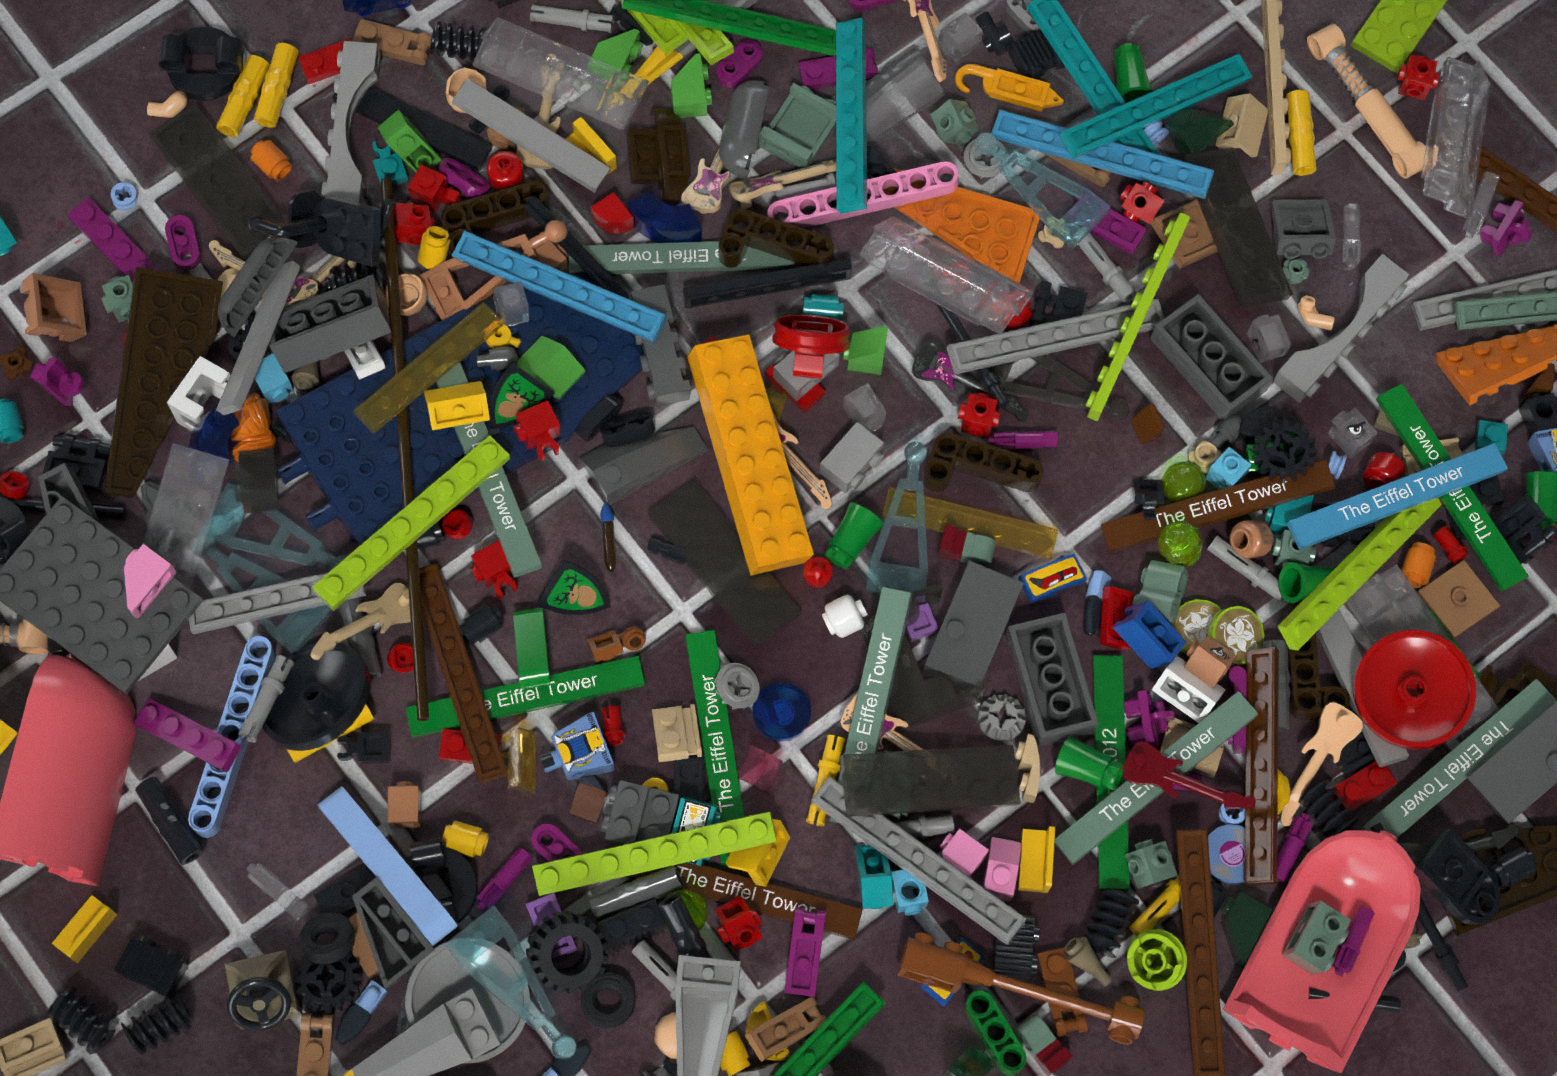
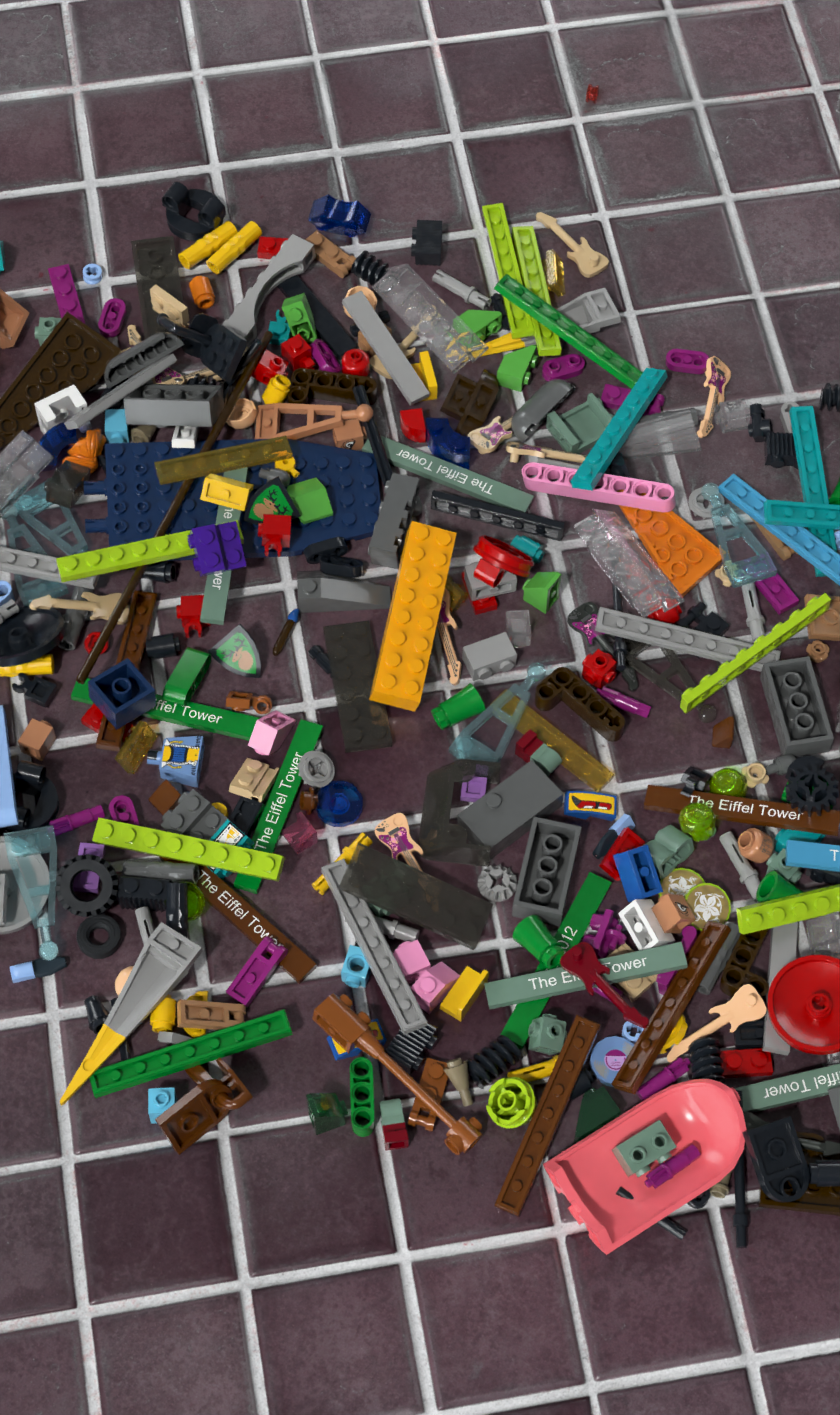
camera: 30 degrees right, 10 degrees down
(170, 107) = (157, 231): light nougat arm -> none
(251, 202) = (167, 304): none -> tan plate
(457, 524) = (185, 575): red tile -> none
(465, 839) = (66, 780): yellow brick -> none
(479, 709) = (122, 693): none -> dark blue brick
(489, 483) = (216, 548): none -> dark purple plate
(511, 303) = (305, 446): clear brick -> none
(560, 286) = (345, 449): dark azure tile -> none
(613, 726) = (211, 759): red pin -> none
(662, 666) = (270, 732): none -> bright pink slope
(738, 924) = (219, 928): red brick -> none
(749, 727) = (308, 800): none -> reddish brown plate
(762, 859) = (263, 891): yellow panel -> none
(775, 245) = (541, 503): dark brown beam -> none
(817, 572) = (420, 722): red tile -> none
(844, 616) = (421, 759): white head -> none
(873, 877) = (335, 945): teal slope -> none
(878, 673) = (420, 801): sand green tile -> none
(955, 122) = (695, 468): sand green brick -> none
(1011, 87) = (752, 464): light orange plate -> none
(1029, 762) = (498, 921): tan slope -> none
(1146, 212) = (810, 584): red brick -> none
(1195, 285) = (816, 656): none -> medium nougat plate
(1228, 470) = (765, 788): medium azure brick -> none

